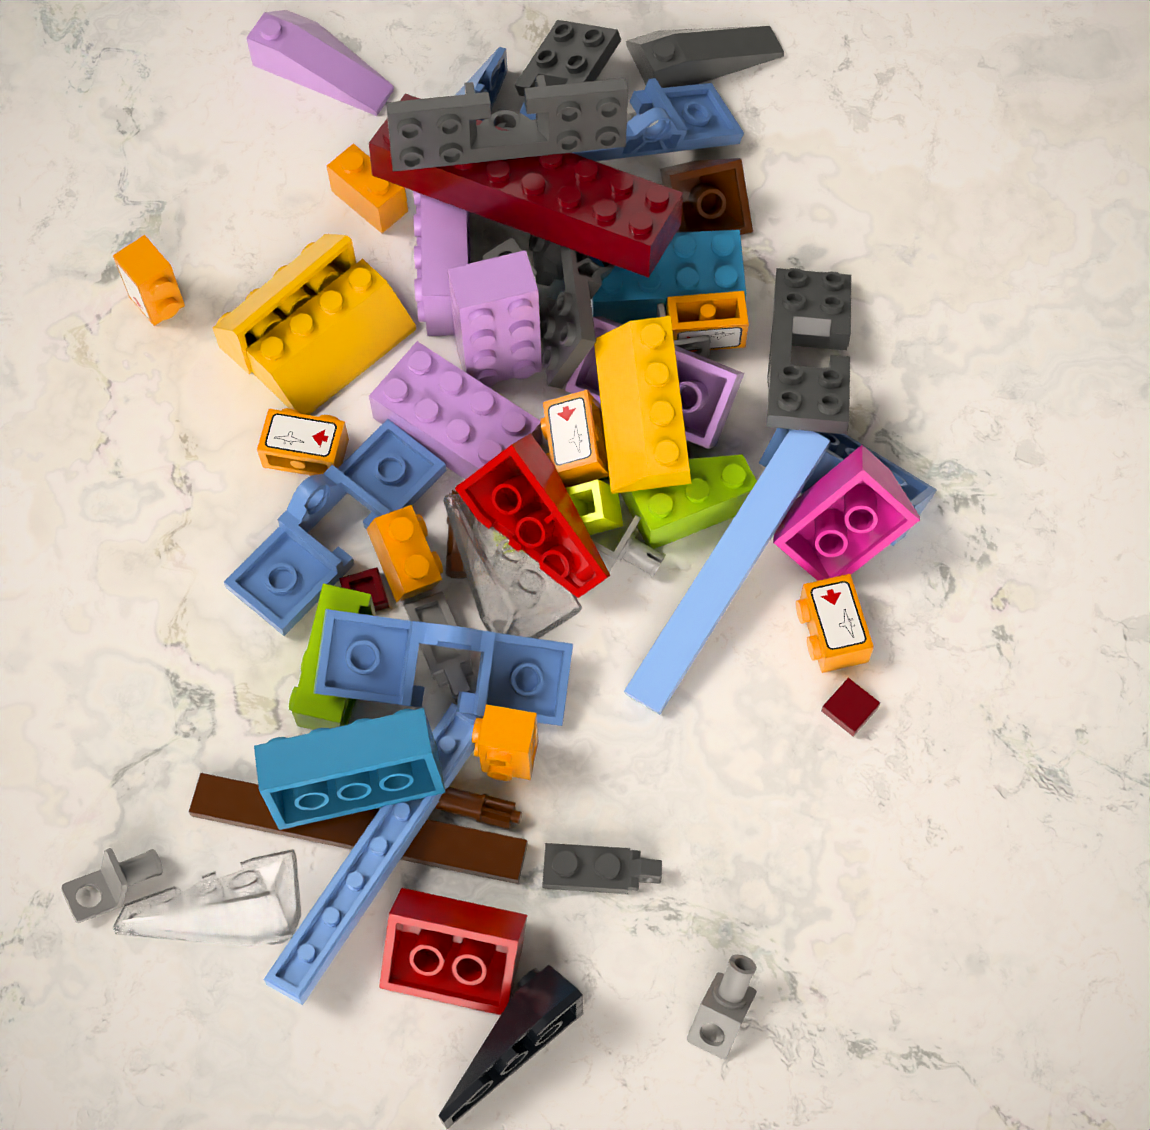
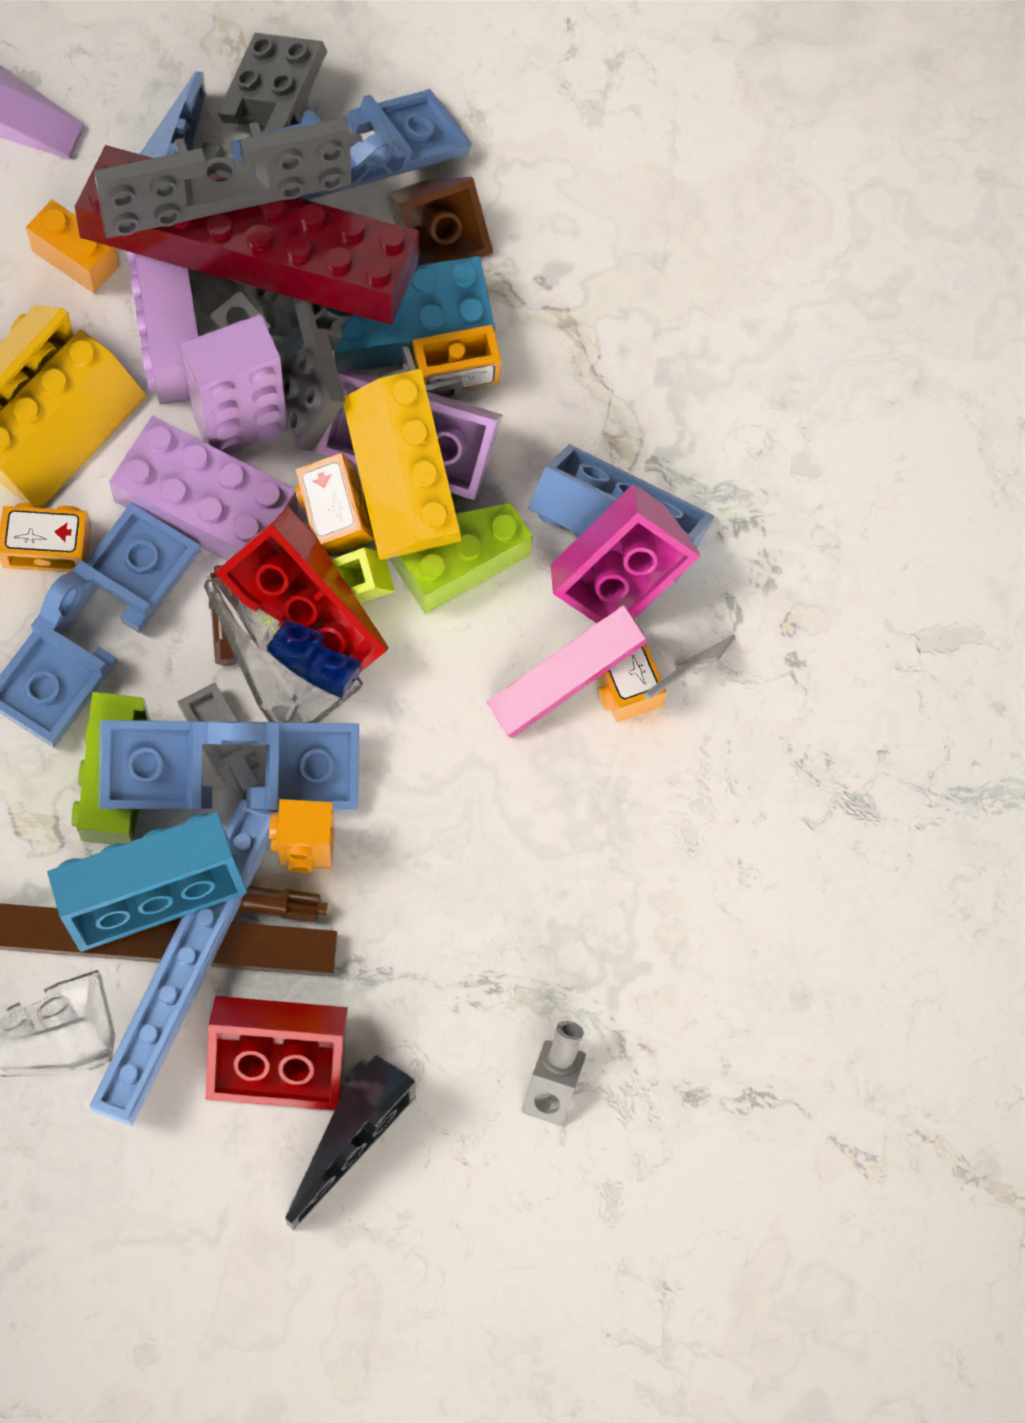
camera: 15 degrees left, 5 degrees up
(368, 582) = (133, 683): dark red tile -> none
(405, 553) = (171, 647): light orange brick -> none
(529, 573) = (303, 654): none -> clear blue slope
(597, 868) = (411, 951): dark grey hinge -> none
(632, 551) = (408, 617): light grey bracket -> none
(701, 54) = (409, 57): dark grey wedge -> none
(726, 569) = (508, 624): light blue tile -> none
(780, 617) = (567, 671): none -> tile
(814, 313) = (568, 339): dark grey plate -> none
(850, 707) = (649, 754): dark red tile -> none
(918, 618) = (708, 655): none -> light grey piece

